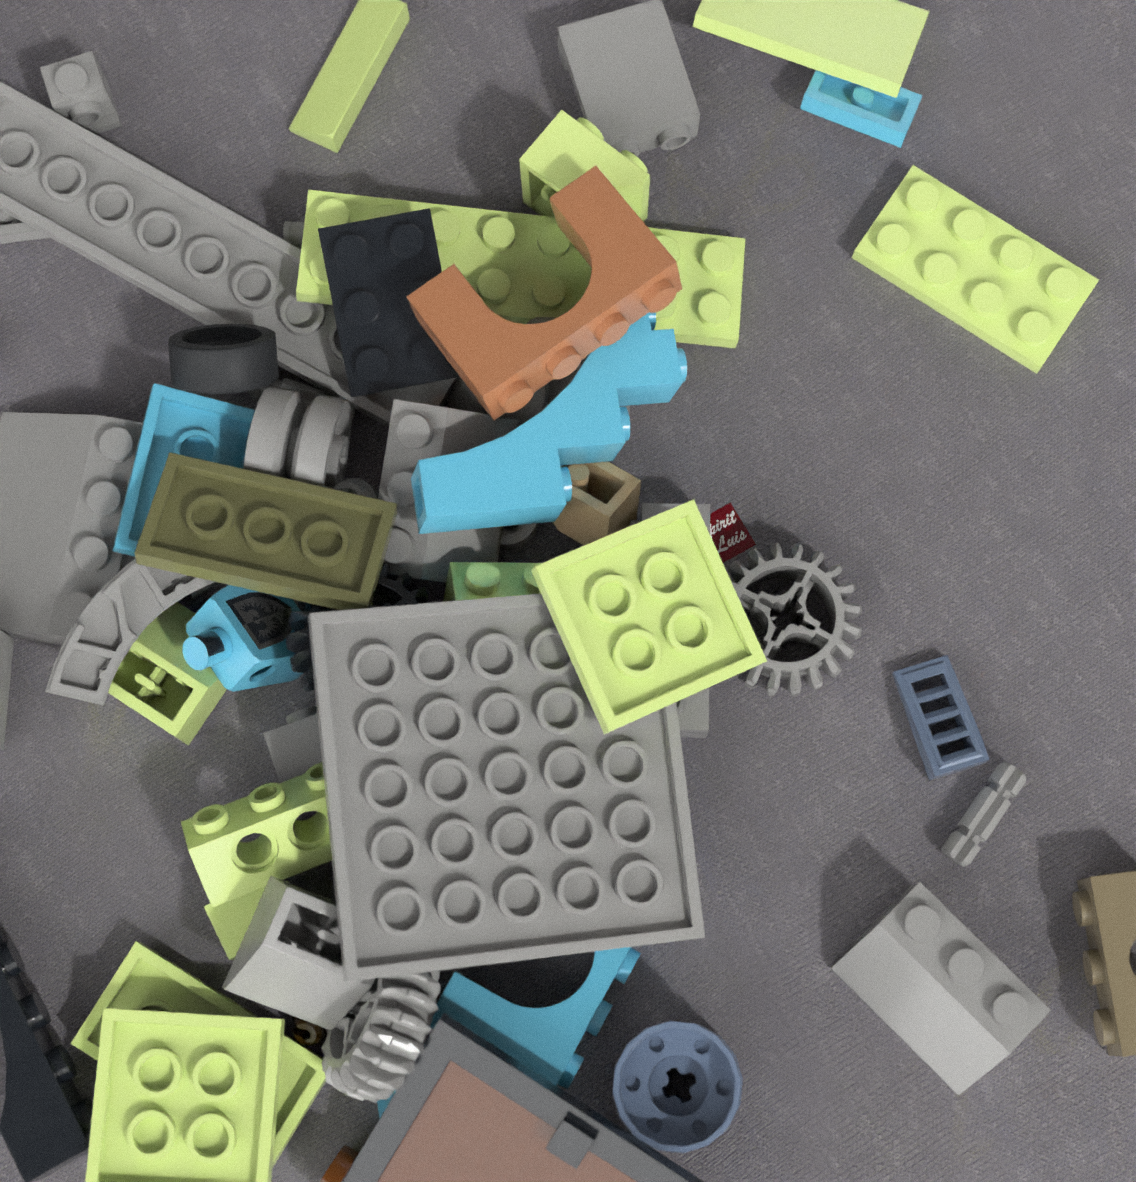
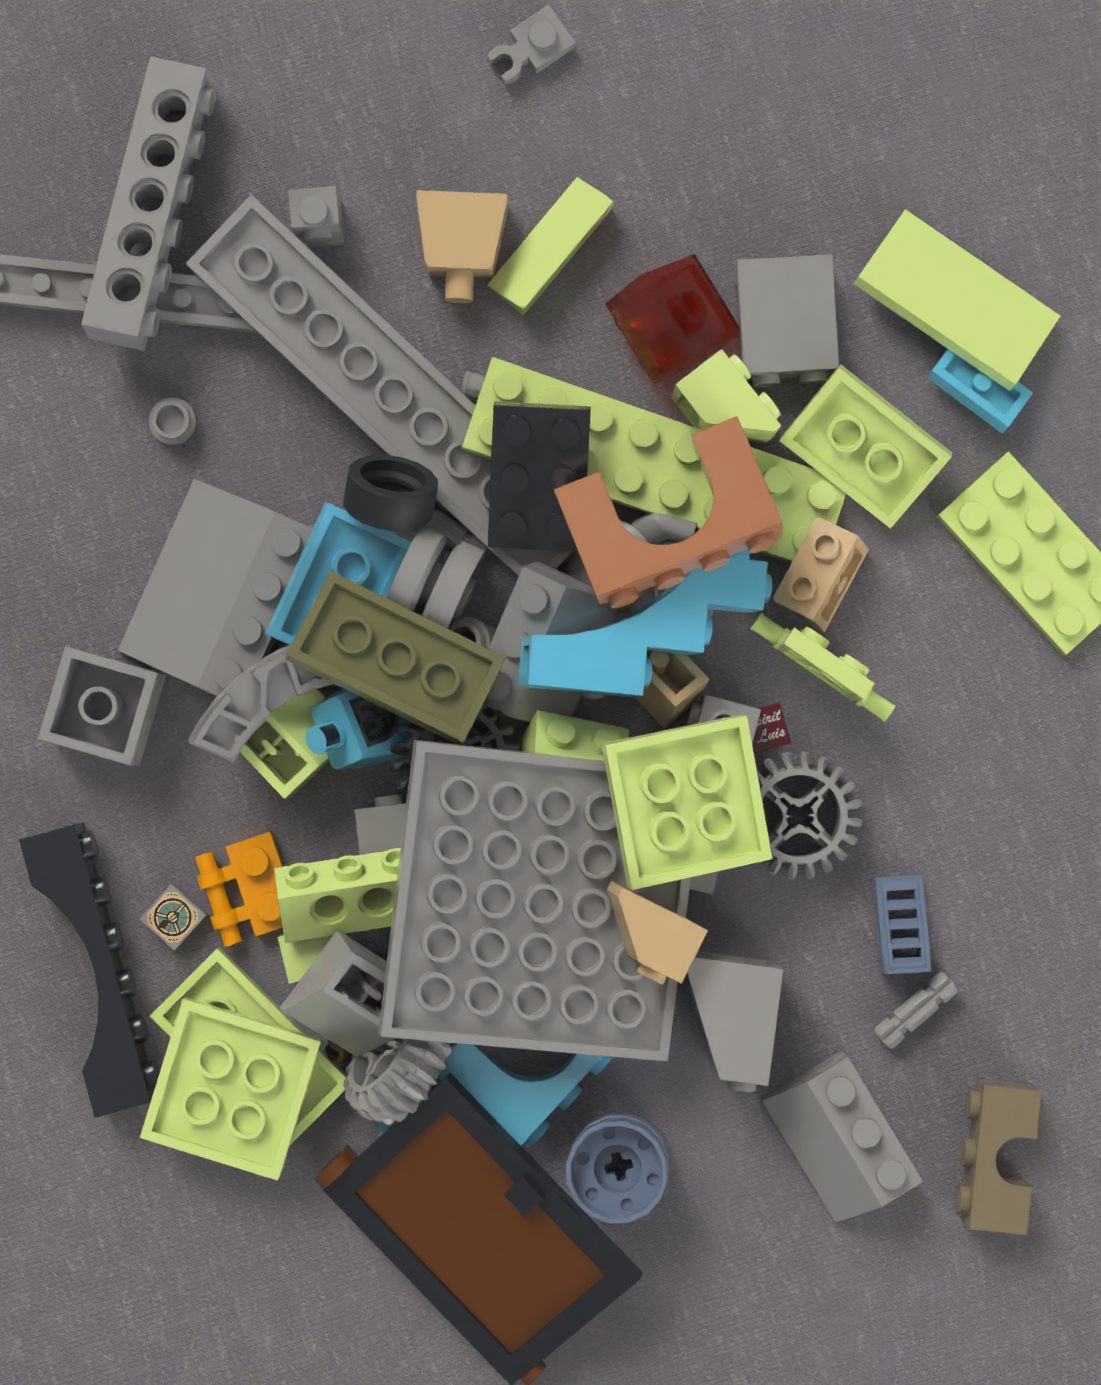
camera: 15 degrees right, 10 degrees up
(78, 919) = (173, 916): none -> tile
(161, 841) = (253, 868): none -> light orange plate
(248, 80) = (461, 237): none -> tan torso
(496, 107) = (673, 317): none -> clear red slope
(650, 780) = (655, 936): none -> tan slope
(740, 340) = (821, 573): none -> tan bracket
(752, 192) = (865, 446): none -> yellowish green plate
(768, 436) = (840, 673): none -> yellowish green plate
(771, 861) = (737, 1014): none -> light grey slope

